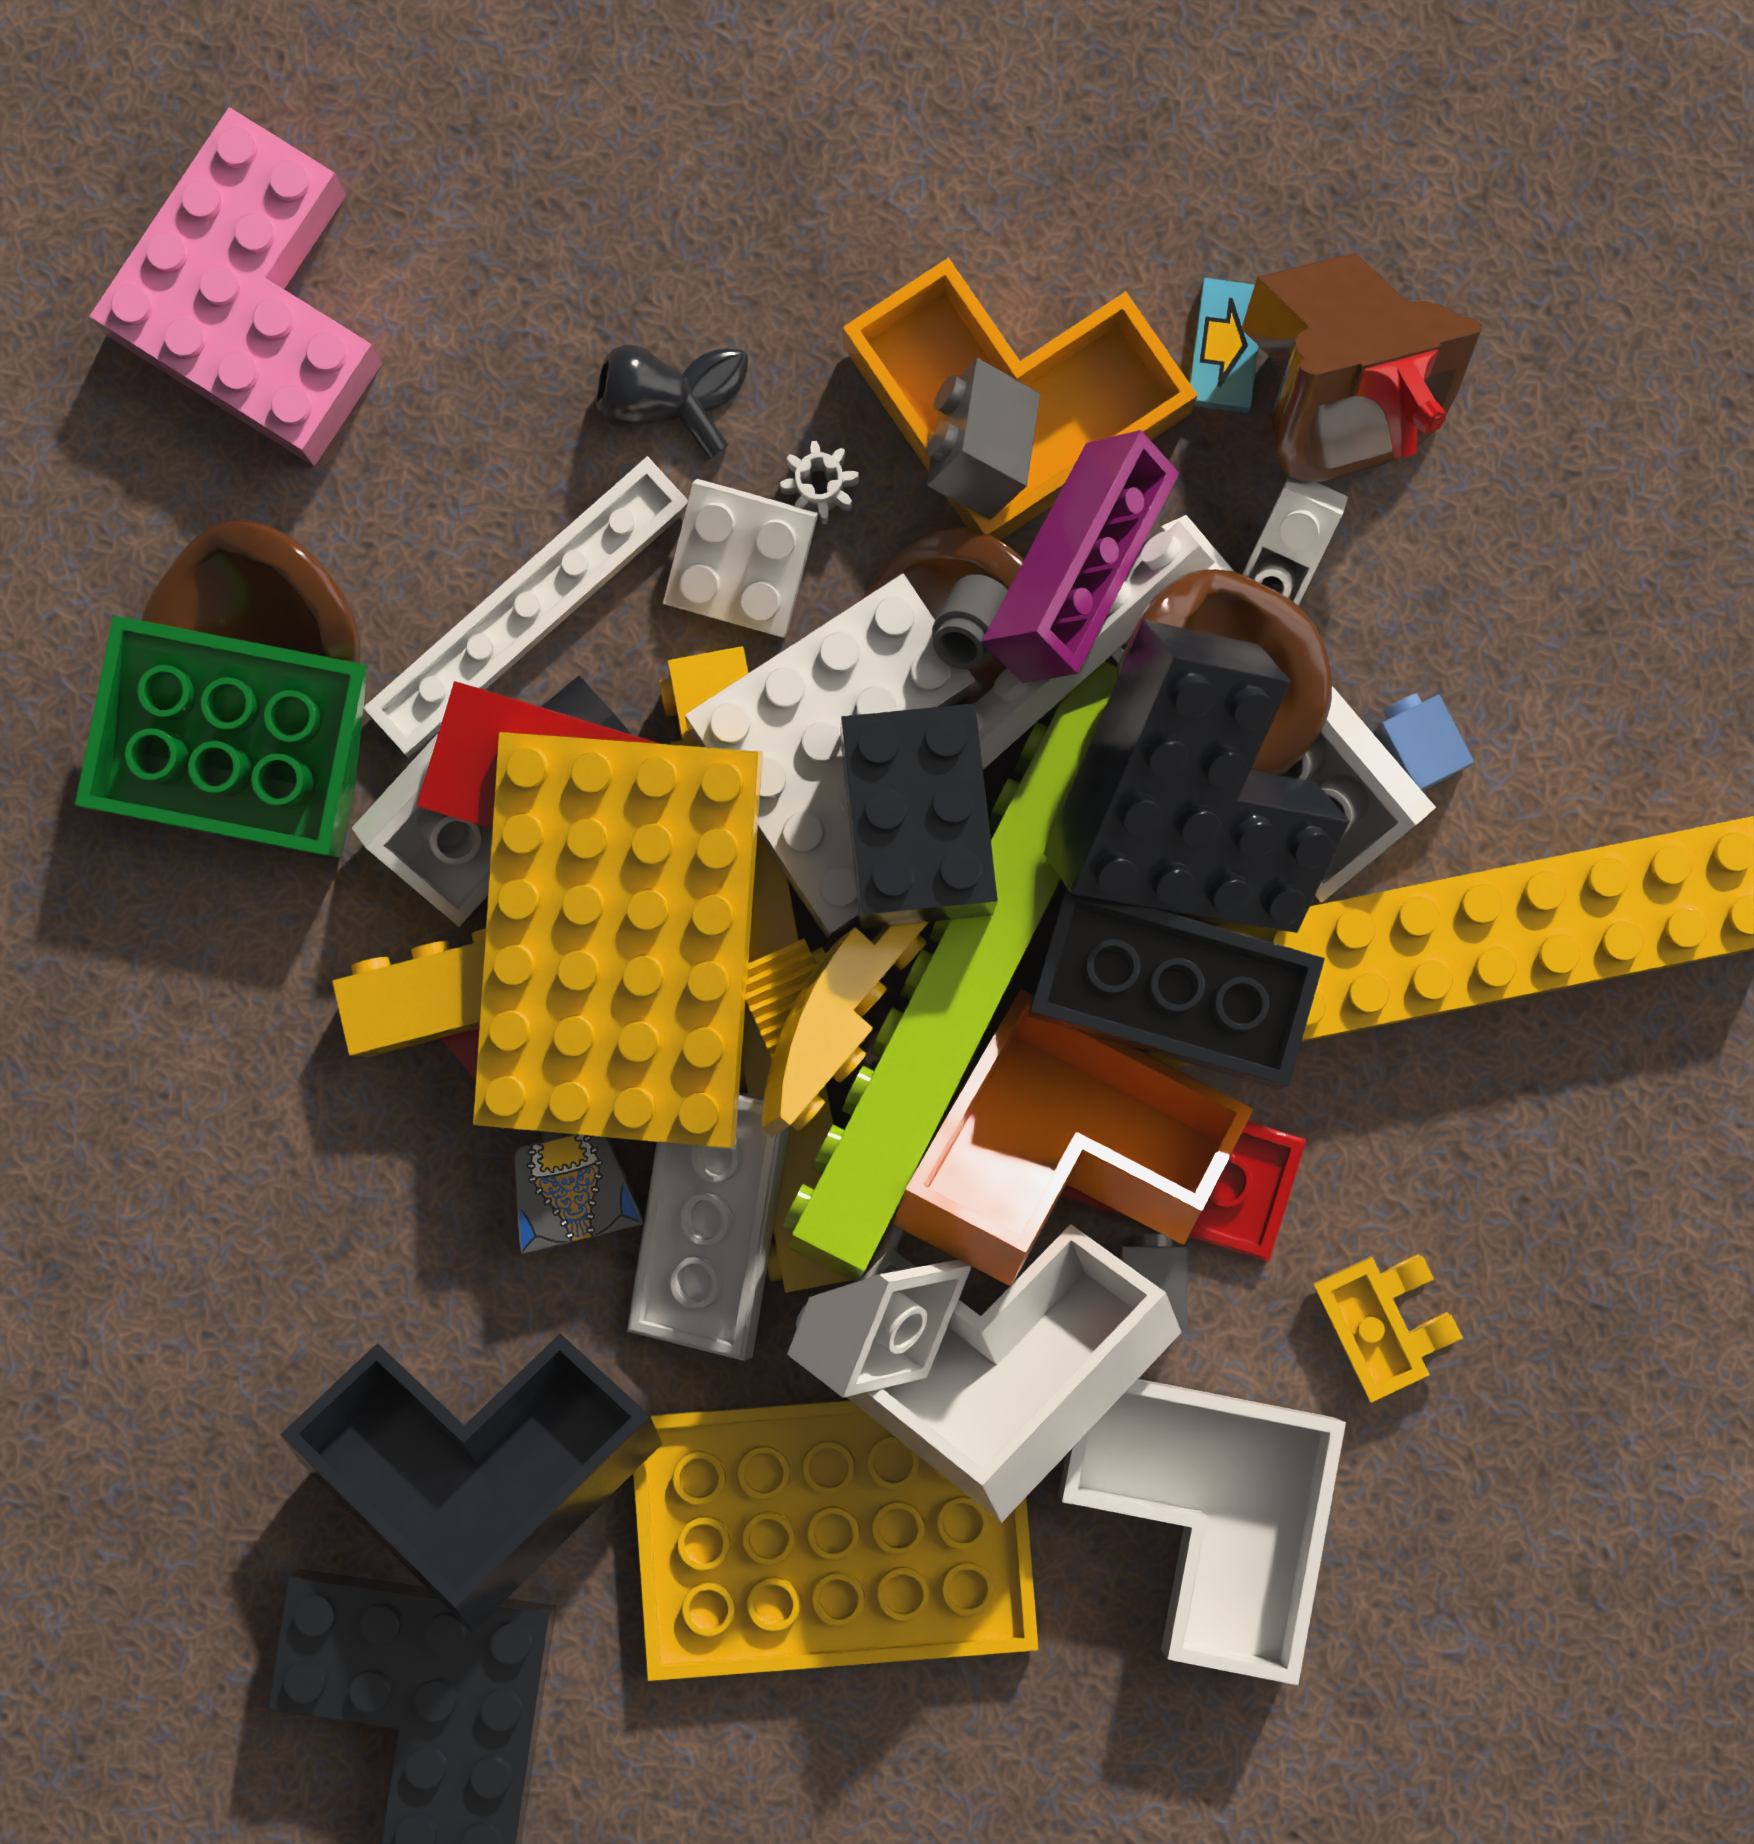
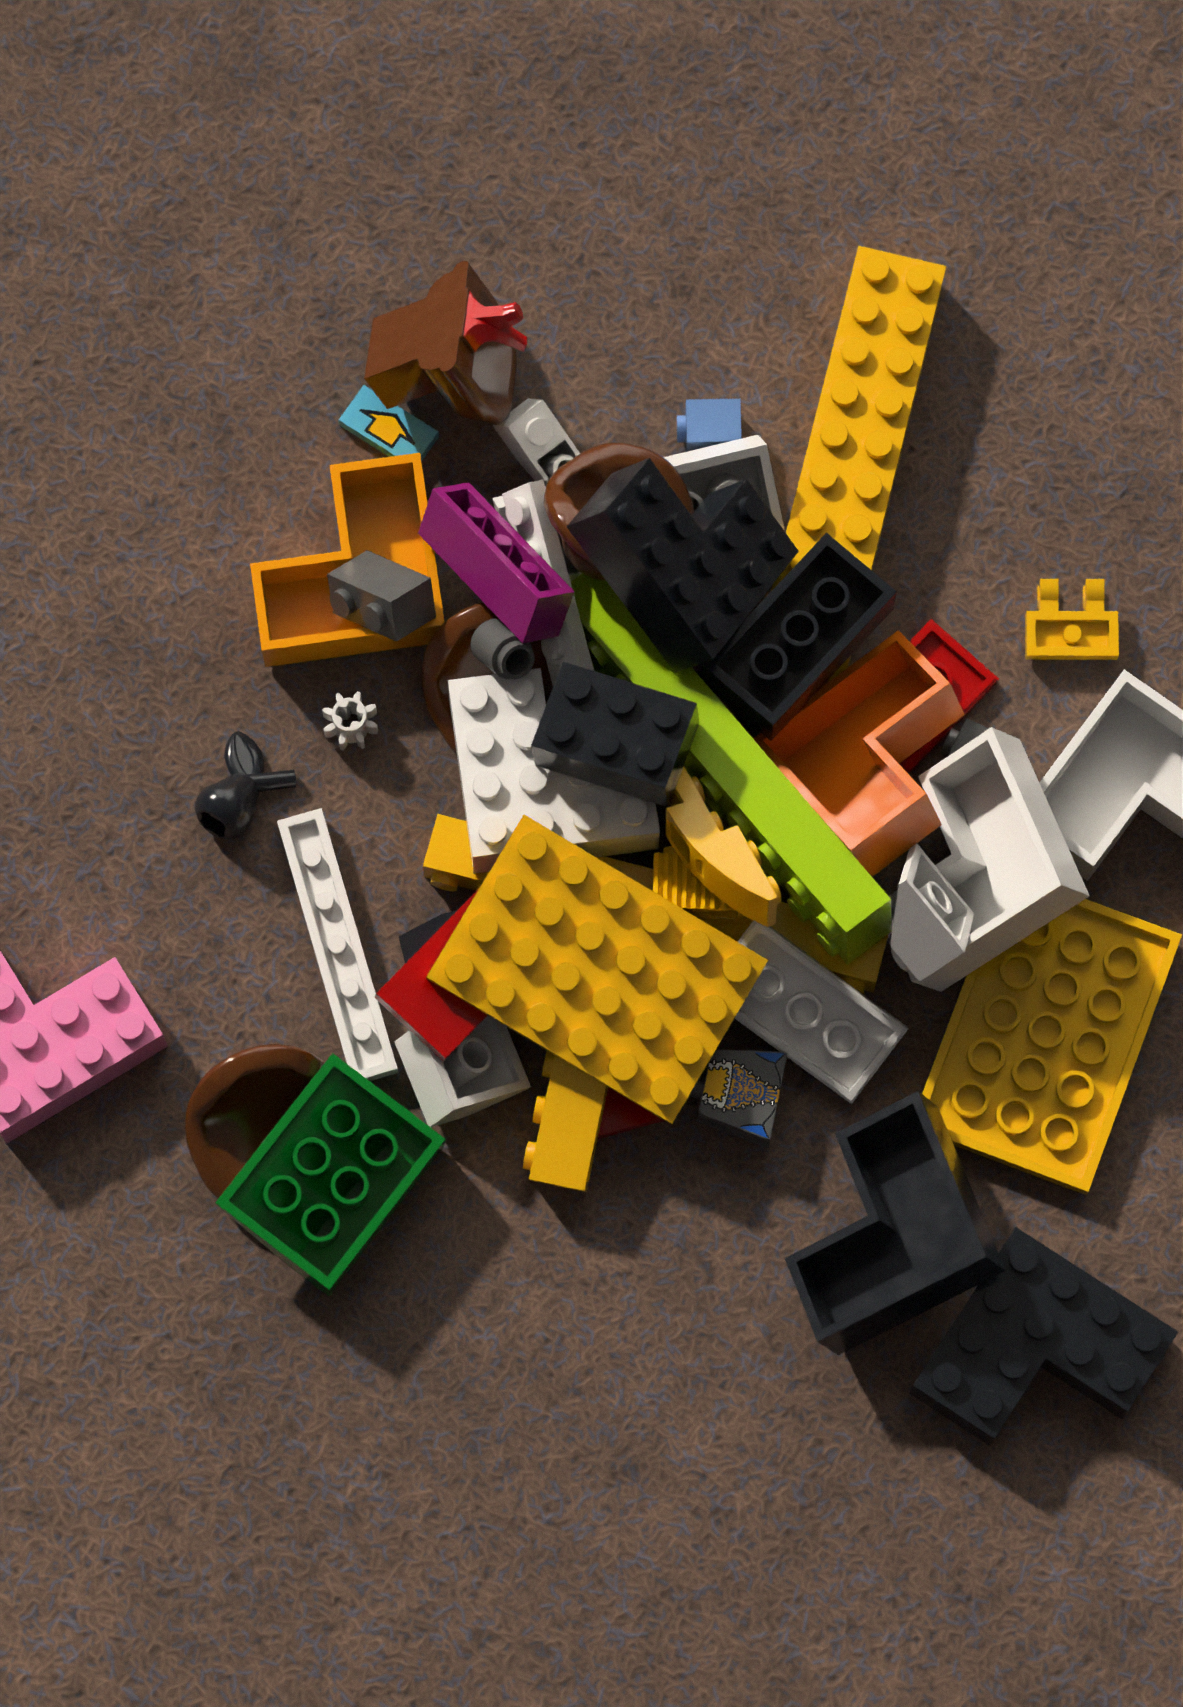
camera: 65 degrees left, 10 degrees down
(740, 558) = (375, 793): white plate -> none

